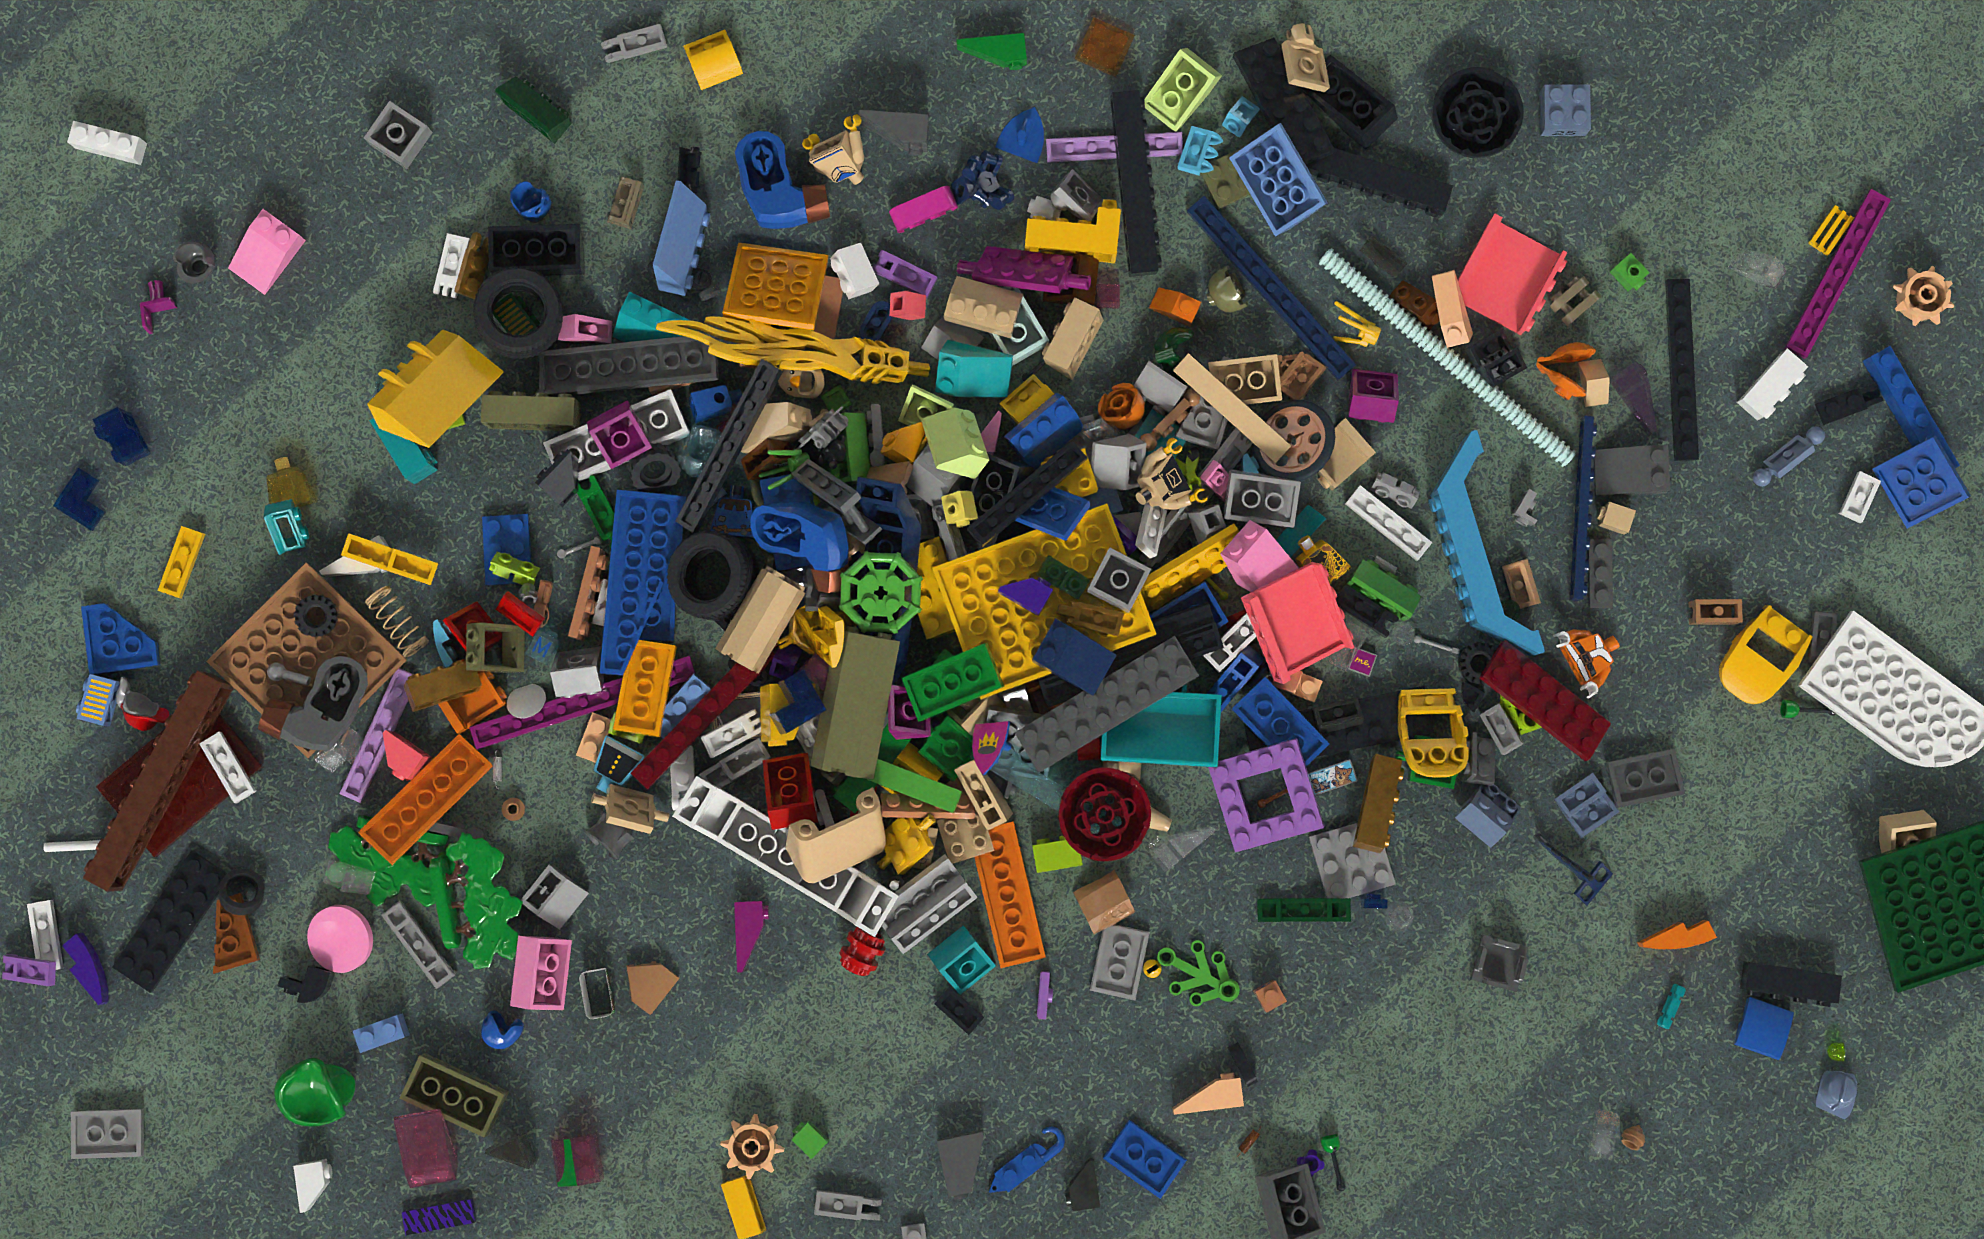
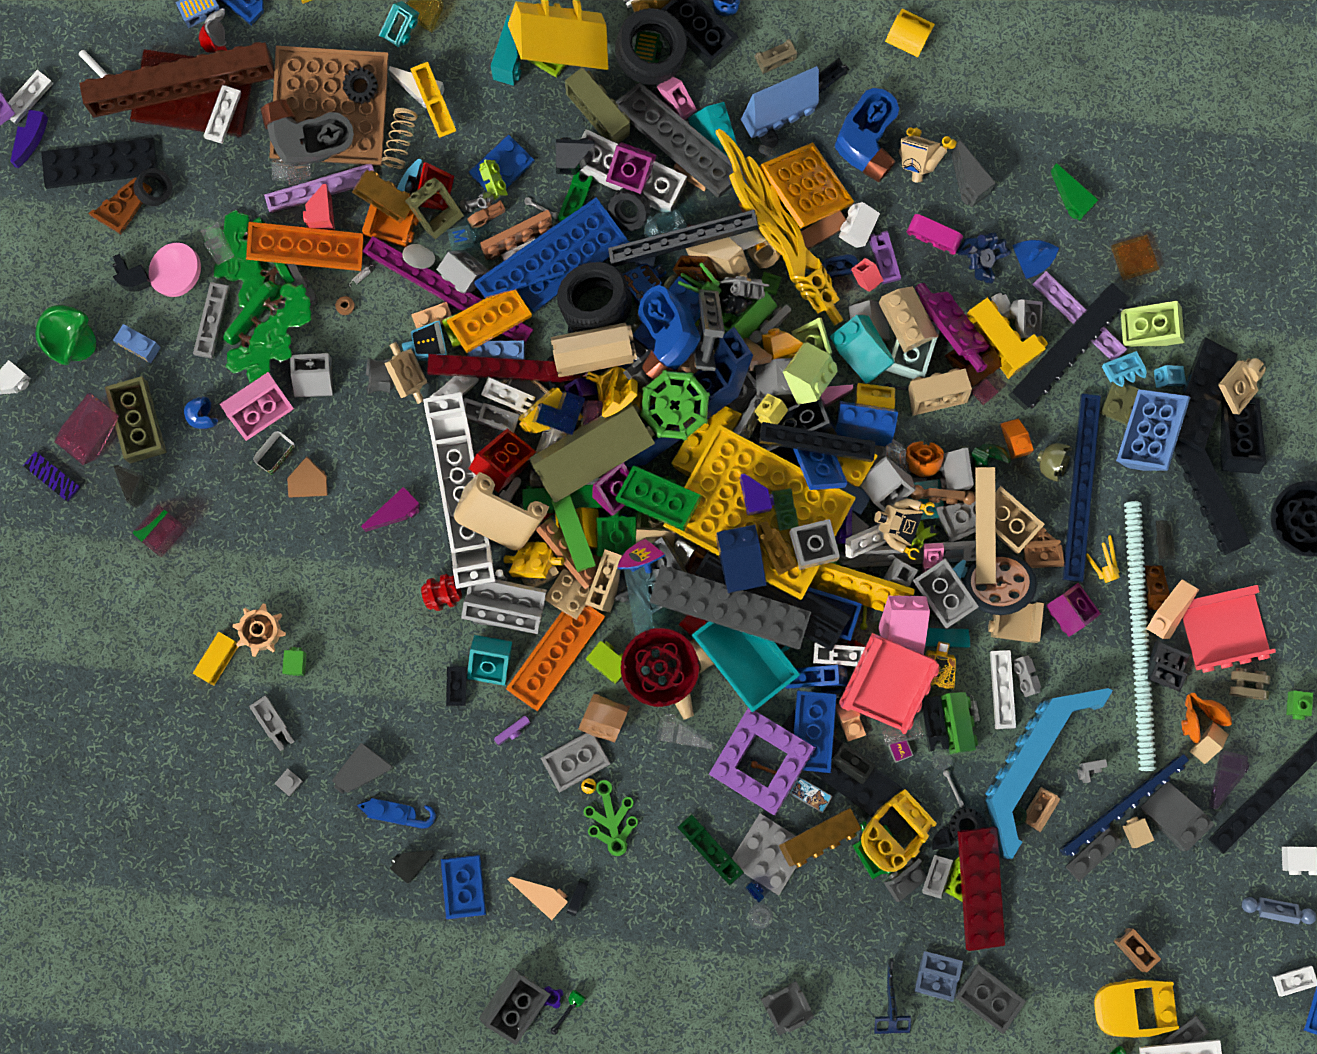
camera: 40 degrees right, 5 degrees down
(277, 672) = (306, 93): light grey bar -> none
(520, 613) = (468, 205): red tile -> none
(704, 404) = (695, 208): blue torso -> none
(783, 388) = (748, 239): none -> white sticker
(1249, 1141) = (532, 945): dark orange piece -> none
(1269, 995) = (636, 876): nougat brick -> none
(1488, 813) = (876, 916): sand blue slope -> none
(1587, 657) = (1033, 891): torso -> none

